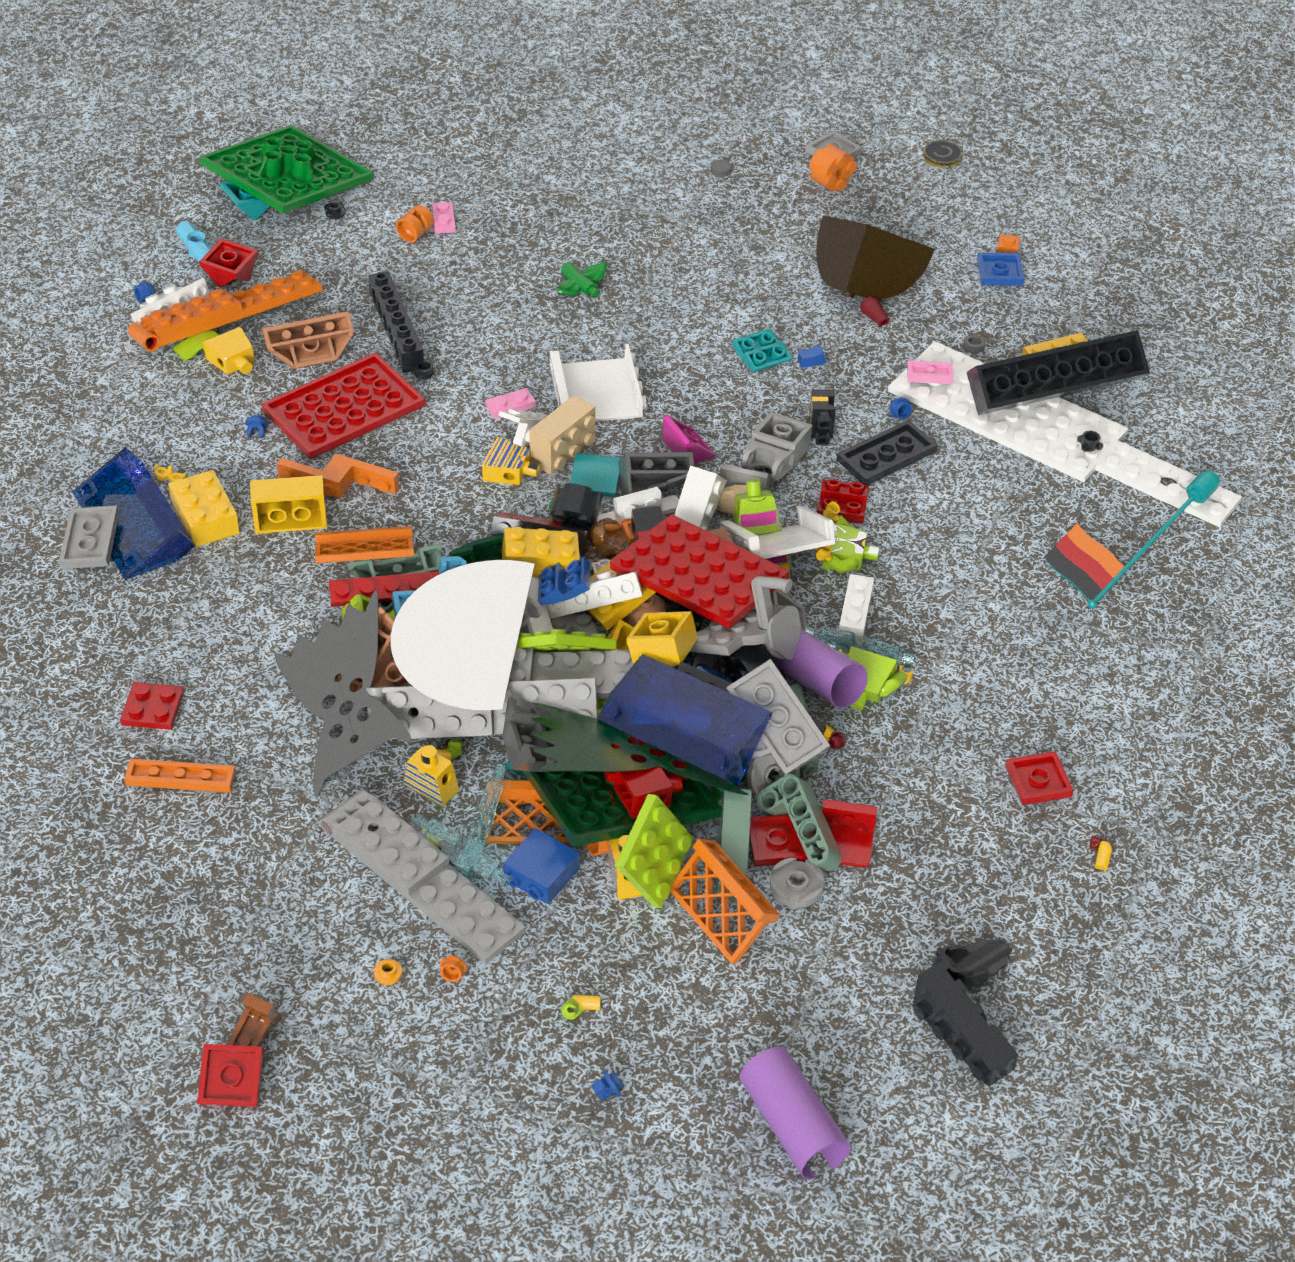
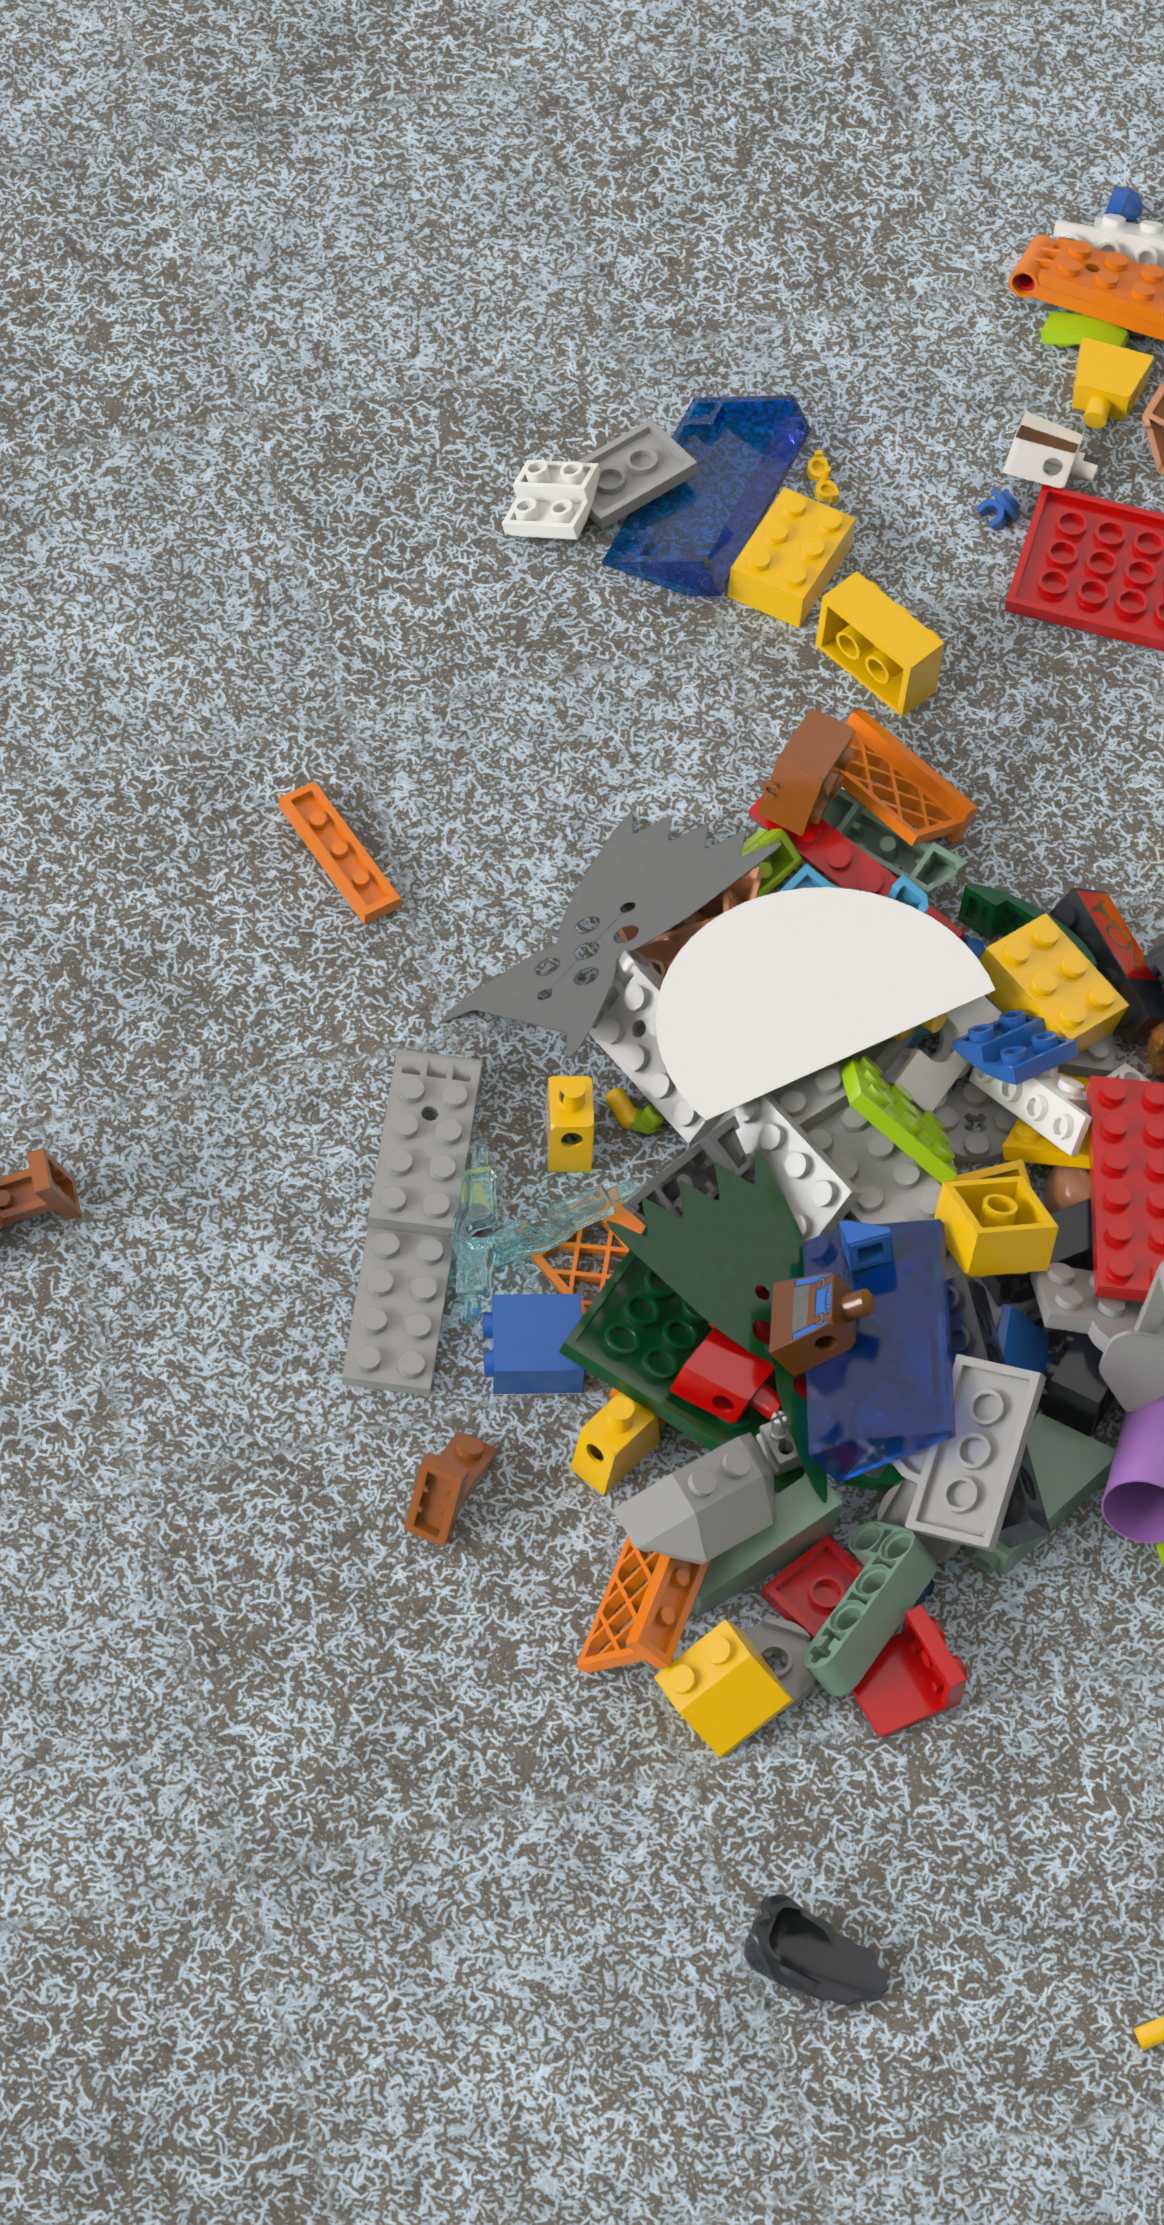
camera: 50 degrees right, 10 degrees up
(72, 571) = (552, 499): none -> white slope
(152, 705) = (424, 743): red plate -> none
(248, 391) = (1048, 453): none -> white torso
(341, 473) = (996, 663): orange bracket -> none
(347, 558) = (808, 773): none -> dark orange brick
(391, 977) = (236, 1293): light orange plate -> none
(450, 966) = (298, 1350): orange plate -> none
(578, 1004) = (363, 1527): arm -> none
(594, 951) = (445, 1485): none -> dark orange bracket
(606, 1086) = (264, 1637): blue plate -> none
(634, 686) = (865, 1244): none -> blue slope
(654, 851) = (634, 1443): lime plate -> none
(657, 729) = (815, 1320): none -> reddish brown torso
(698, 794) = (775, 1438): none -> light grey piece
(712, 837) = (704, 1504): none -> light grey wedge
(793, 1110) = (384, 1870): medium lavender piece -> none
(802, 905) = (724, 1688): none -> yellow slope
(836, 739) = (1075, 1560): dark red arm -> none
(962, 1025) = (690, 2002): black wedge -> none

